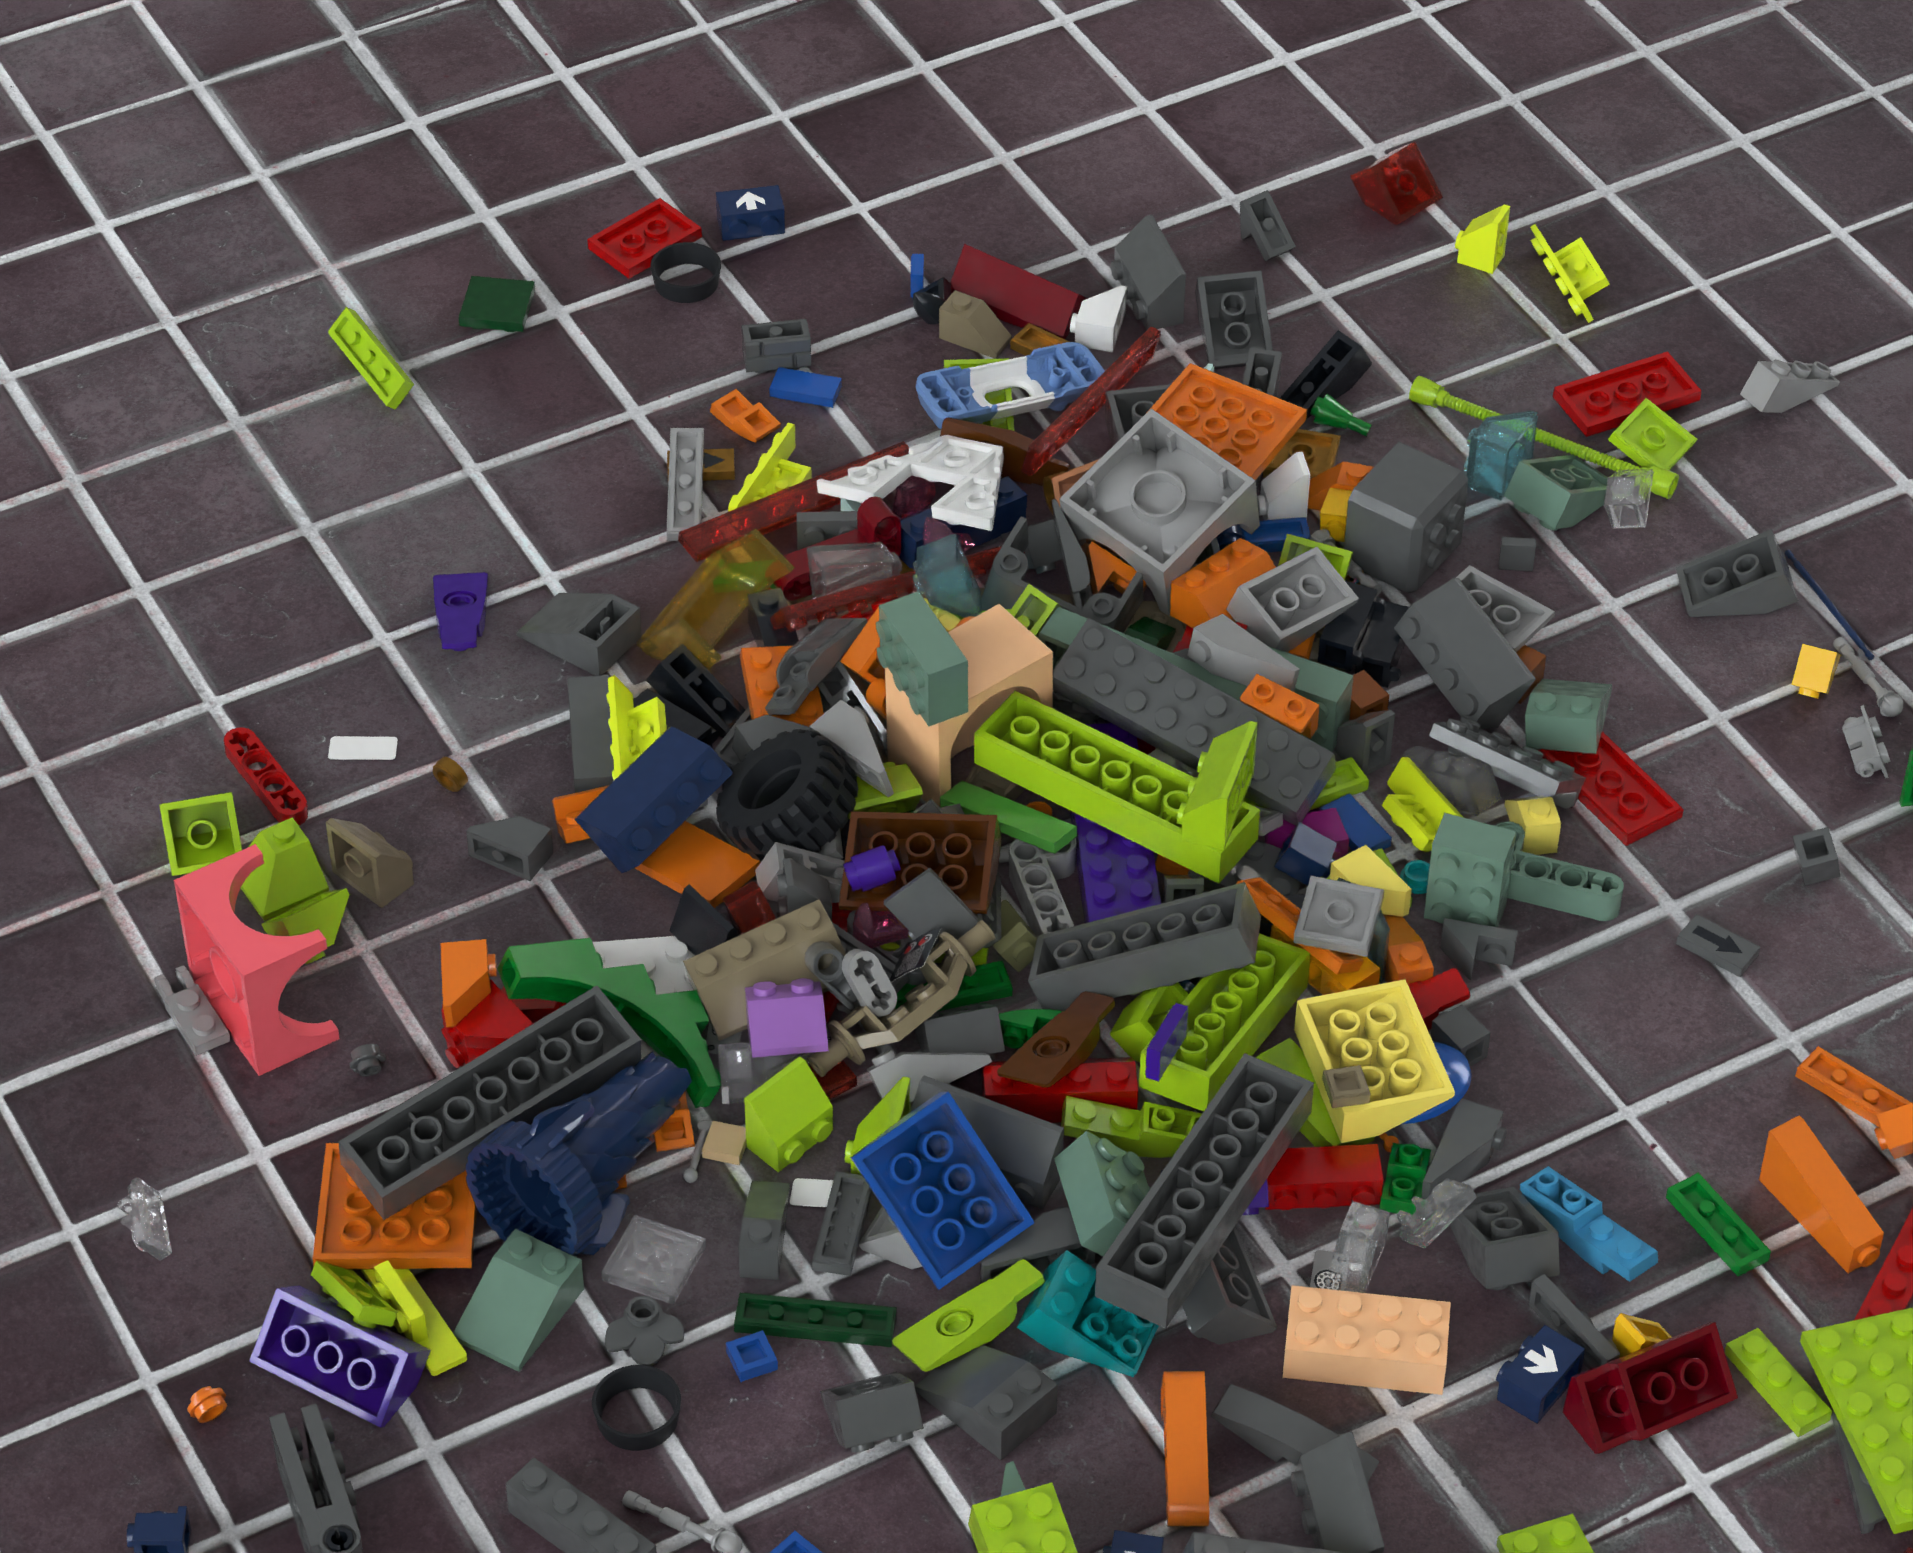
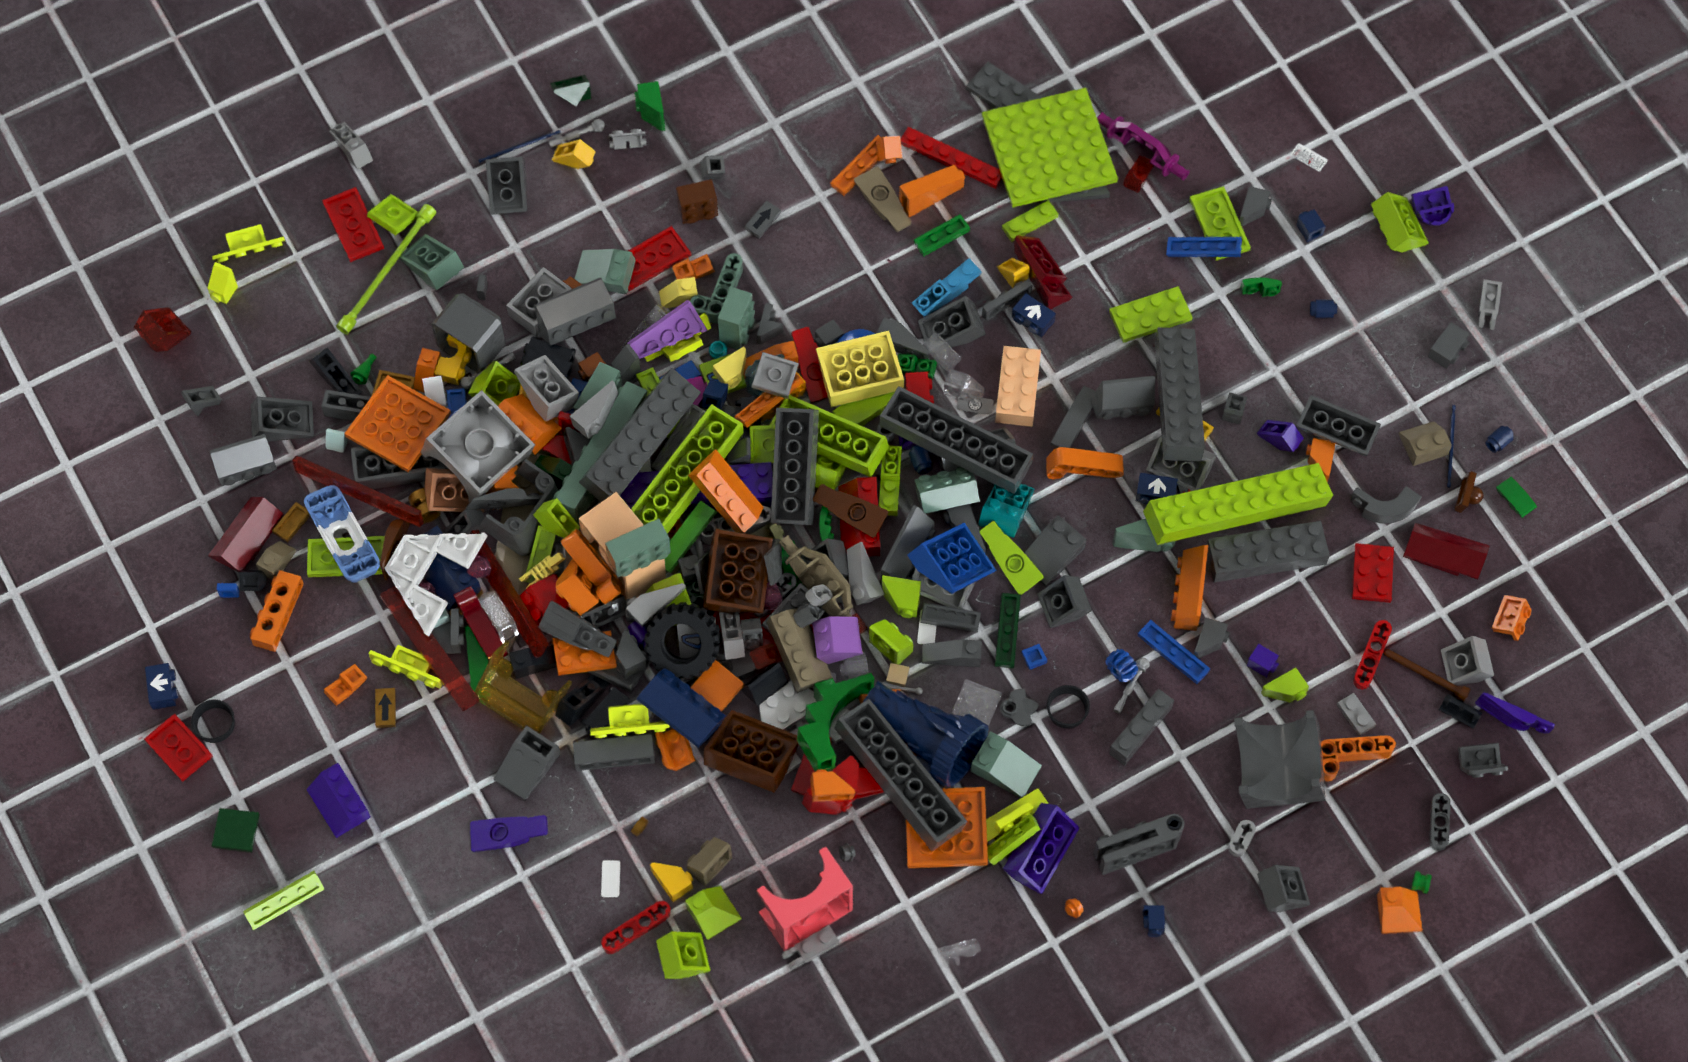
camera: 90 degrees left, 20 degrees up
(319, 912) = (743, 889): lime slope -> none
(348, 803) = (672, 879): none -> yellow slope
(512, 845) = (695, 787): dark grey slope -> none
(540, 417) = (337, 800): none -> dark purple slope
(578, 898) = (751, 751): none -> reddish brown slope
(685, 480) = (406, 713): light grey tile -> none
(718, 1493) = (1121, 665): none -> blue gear
(776, 345) = (292, 665): dark grey brick -> none
(805, 387) = (320, 652): blue tile -> none
(871, 868) = (750, 590): dark purple brick -> none
(879, 331) = (270, 638): none -> orange brick
(915, 954) = (797, 575): black sticker -> none
(947, 577) = (519, 560): clear light blue slope -> none
(1079, 840) = (726, 492): none -> orange slope
(1100, 319) = (275, 489): white slope -> none
(1166, 1042) = (869, 452): dark purple tile -> none
(1220, 787) = (709, 415): lime slope -> none
(1282, 705) = (638, 391): orange bracket -> none
(1346, 1086) = (889, 376): dark tan tile -> none
(1433, 777) = (673, 327): none -> medium lavender wing
(1497, 450) = (412, 287): clear light blue slope -> none
(1509, 762) = (648, 298): dark grey bracket -> none
(1591, 841) = (696, 268): none -> orange slope
(1628, 497) = (440, 227): clear slope -> none
(1732, 830) = (697, 201): none -> reddish brown brick
(1822, 1107) = (882, 198): none -> dark tan piece

